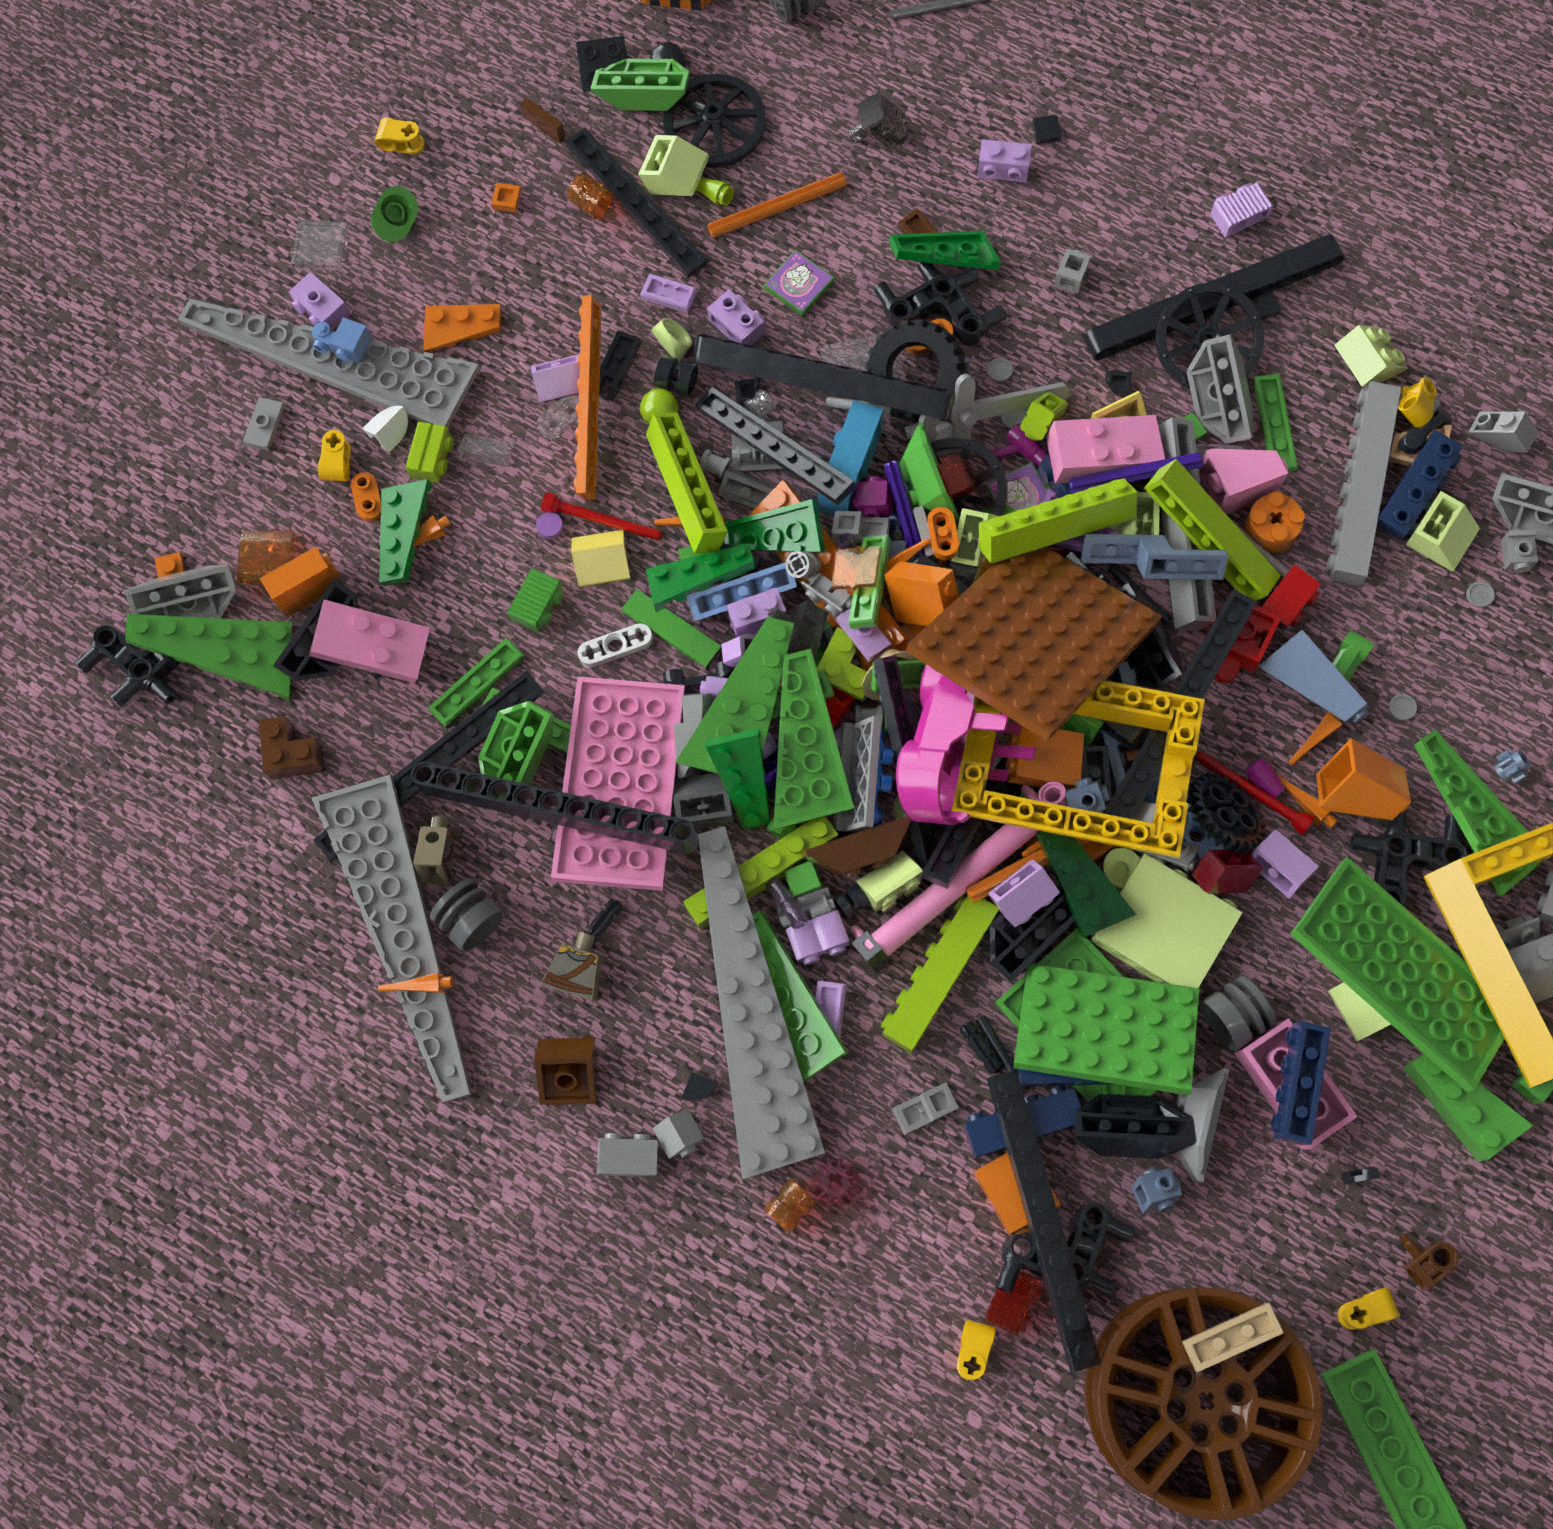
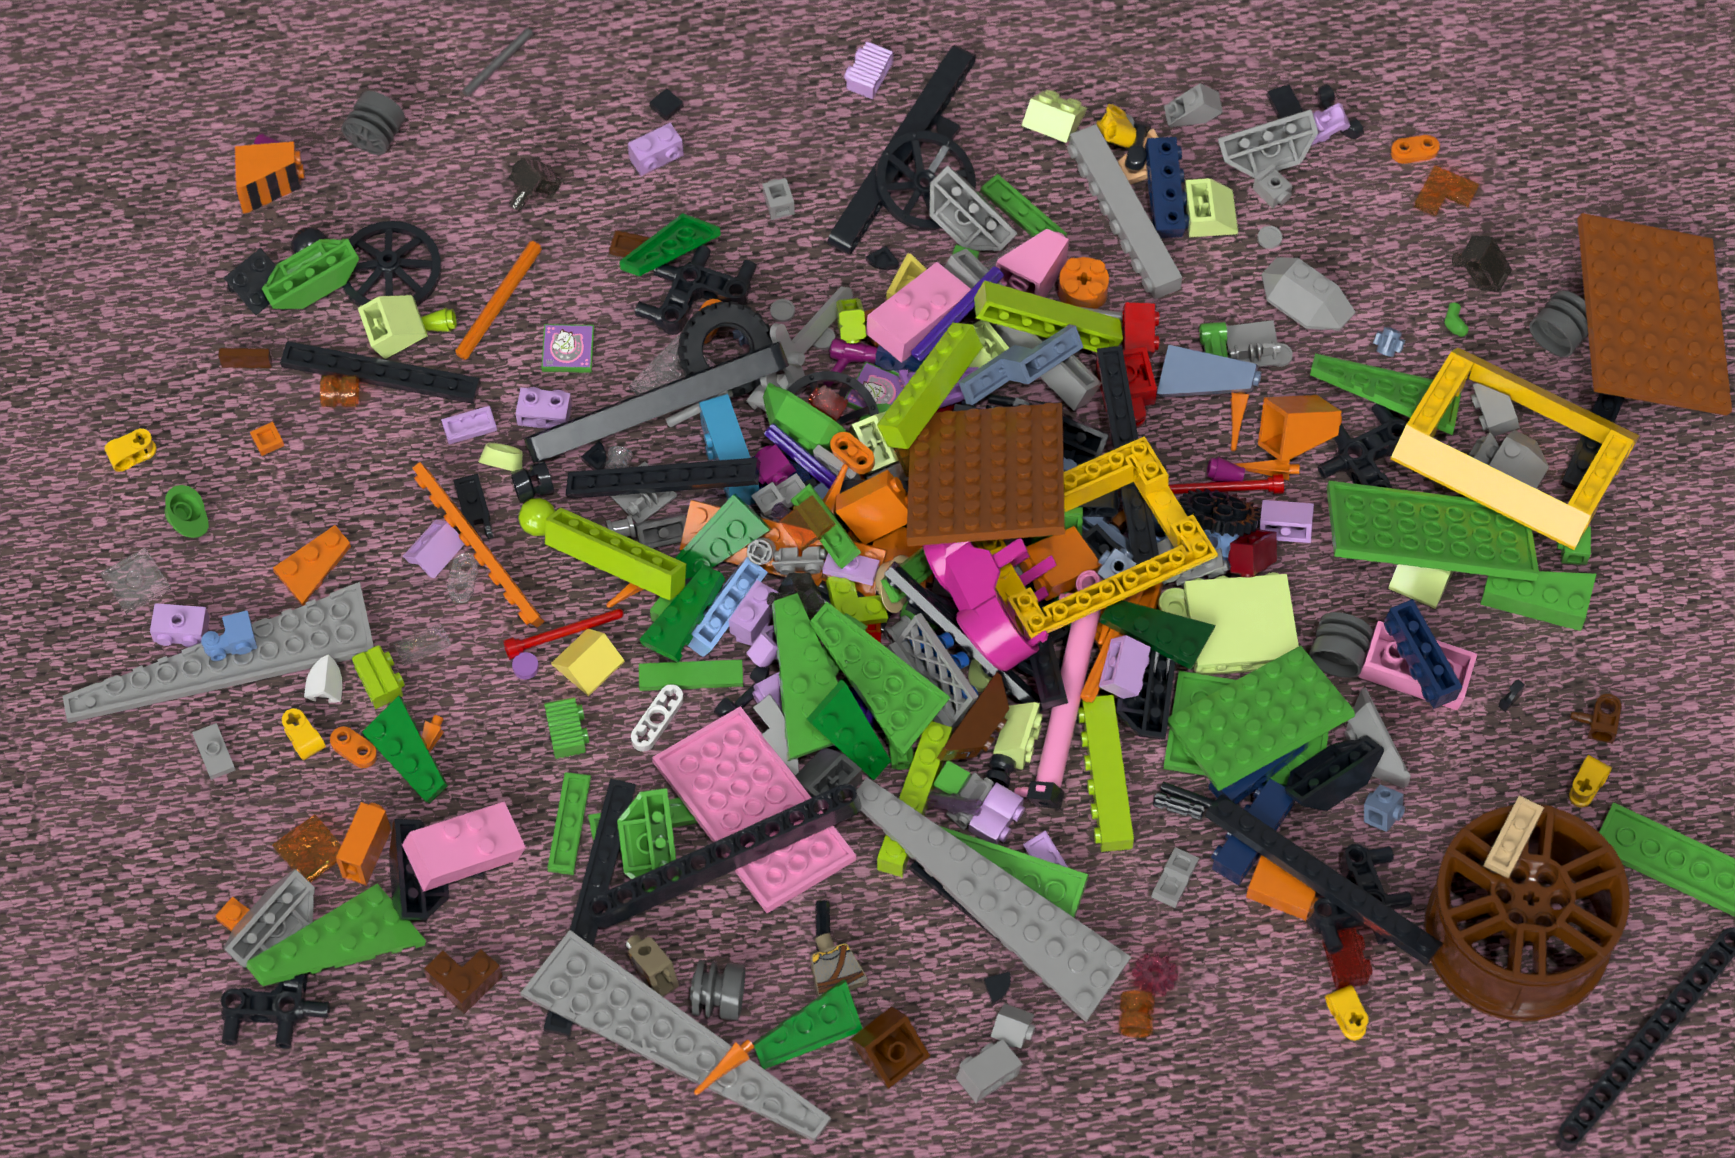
camera: 45 degrees left, 10 degrees down
(521, 1005) = (812, 1027): none -> green wing
(1385, 681) = (1254, 343): none -> light grey hinge
(1469, 670) = (1306, 295): none -> light grey wedge

